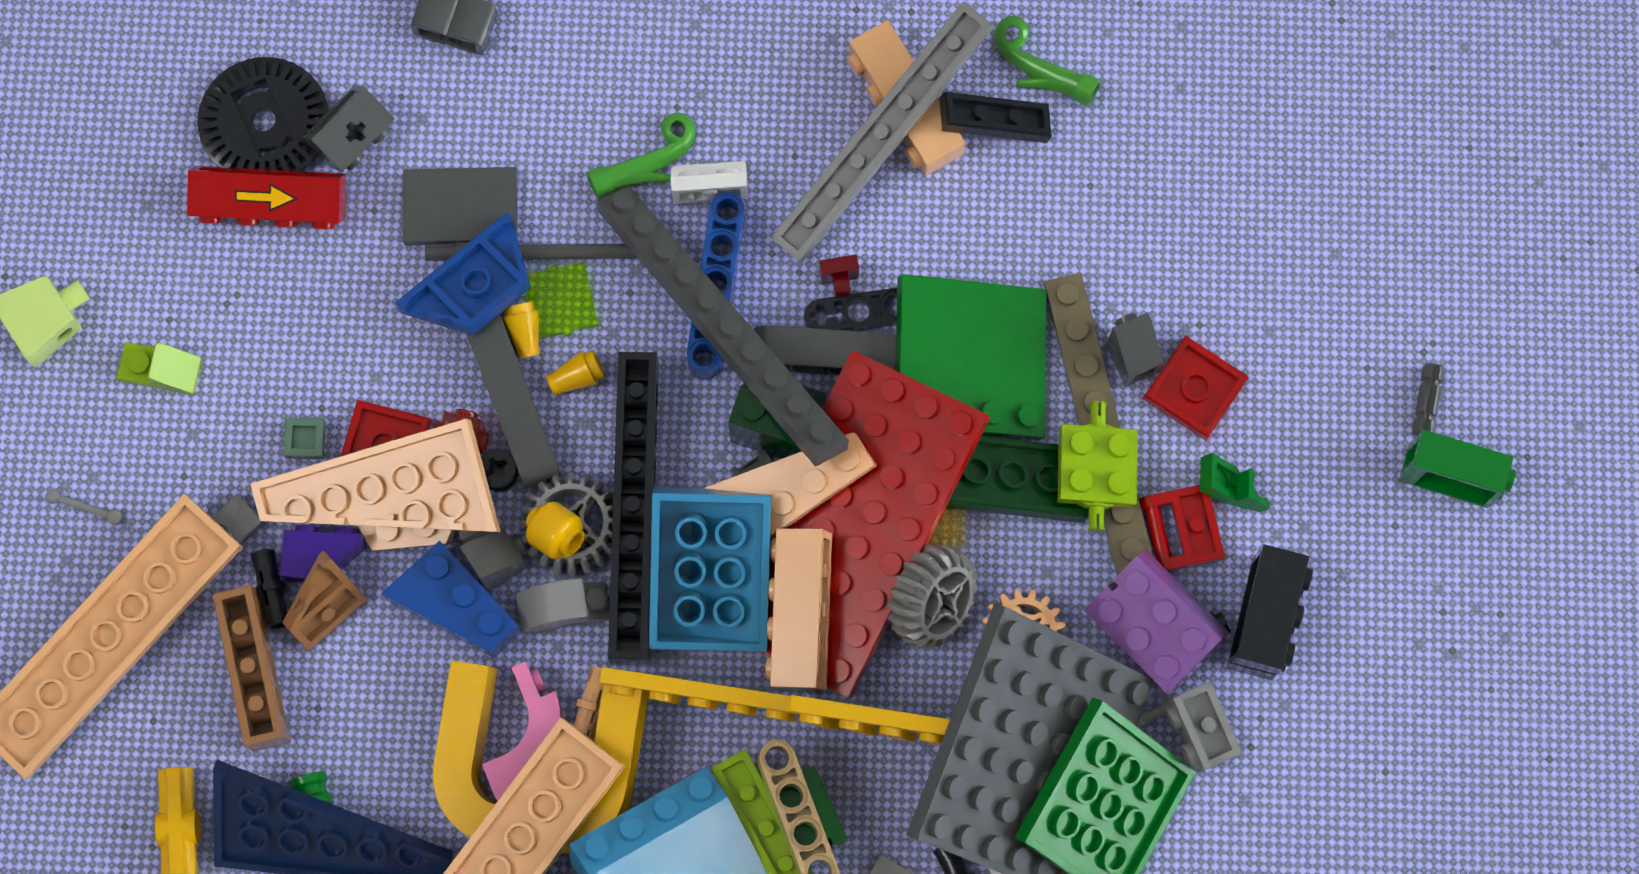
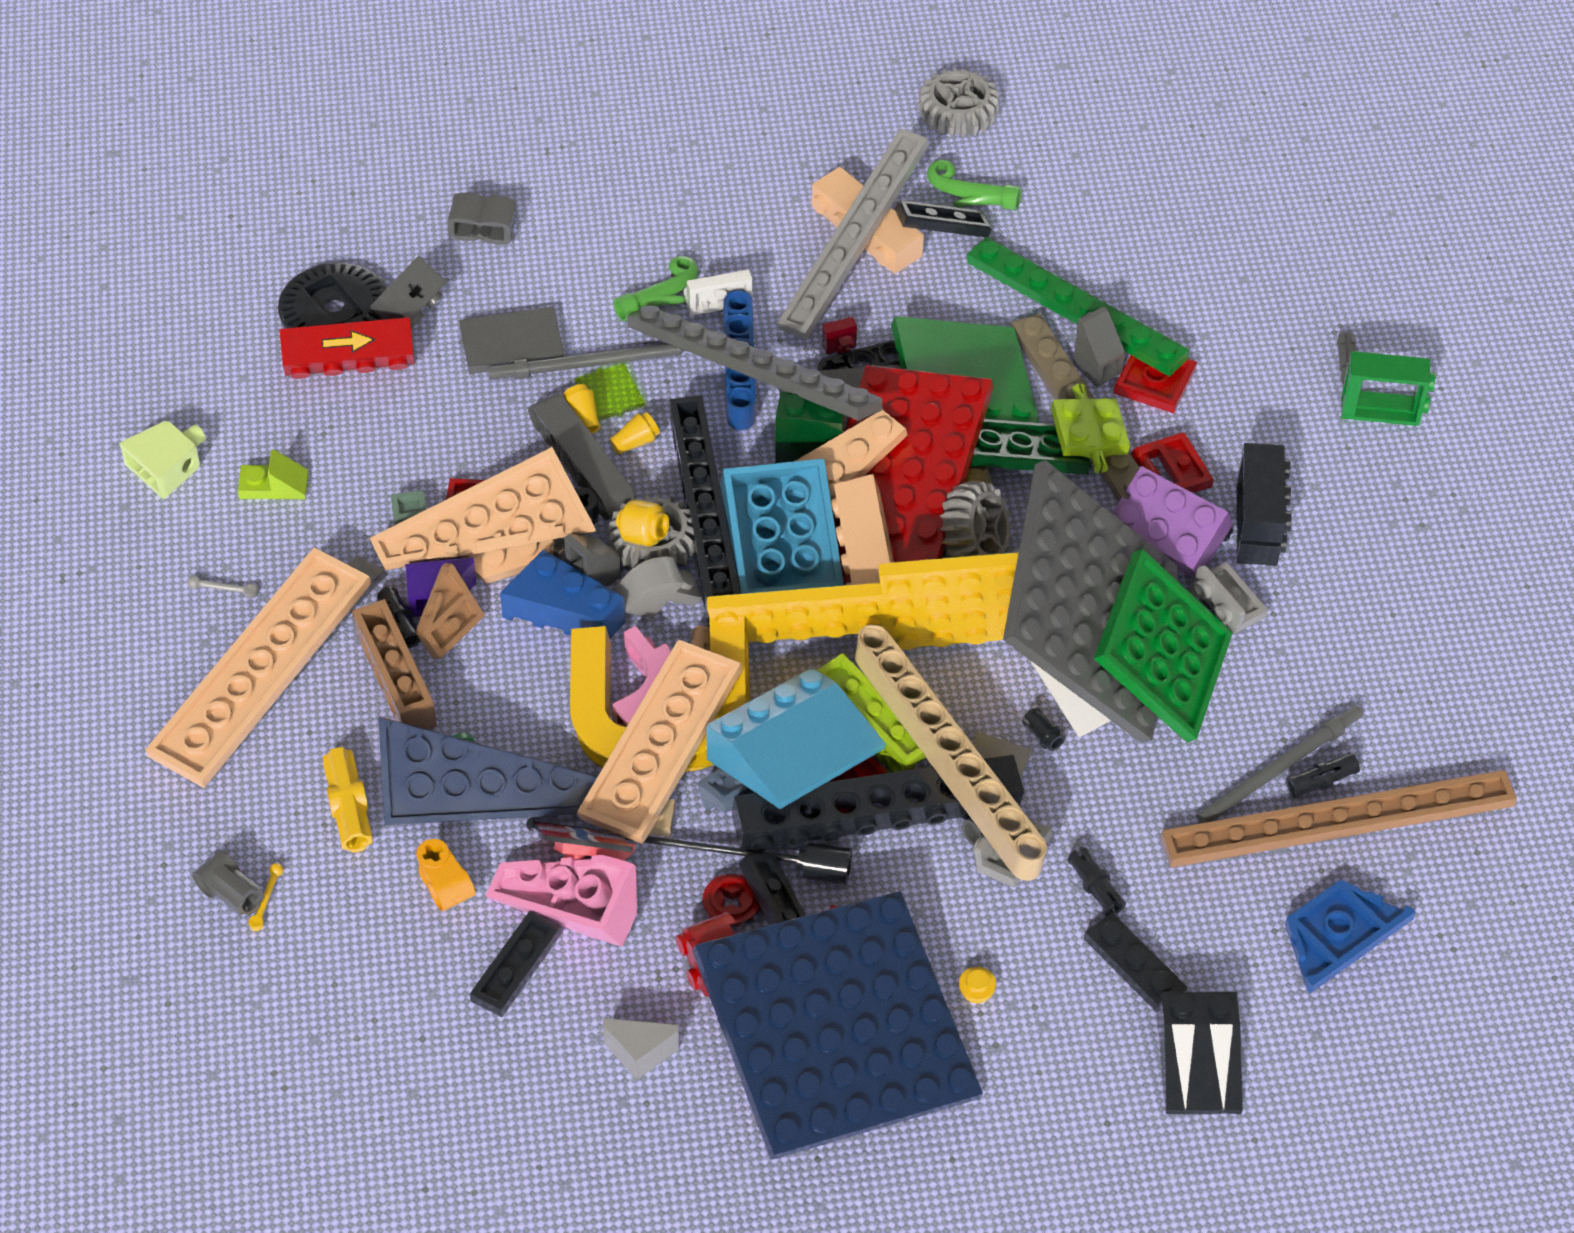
camera: 10 degrees left, 25 degrees down
(472, 283) = (533, 377): blue wing -> none
(1127, 270) = (1073, 303): none -> green plate
(1225, 483) = (1201, 434): green slope -> none

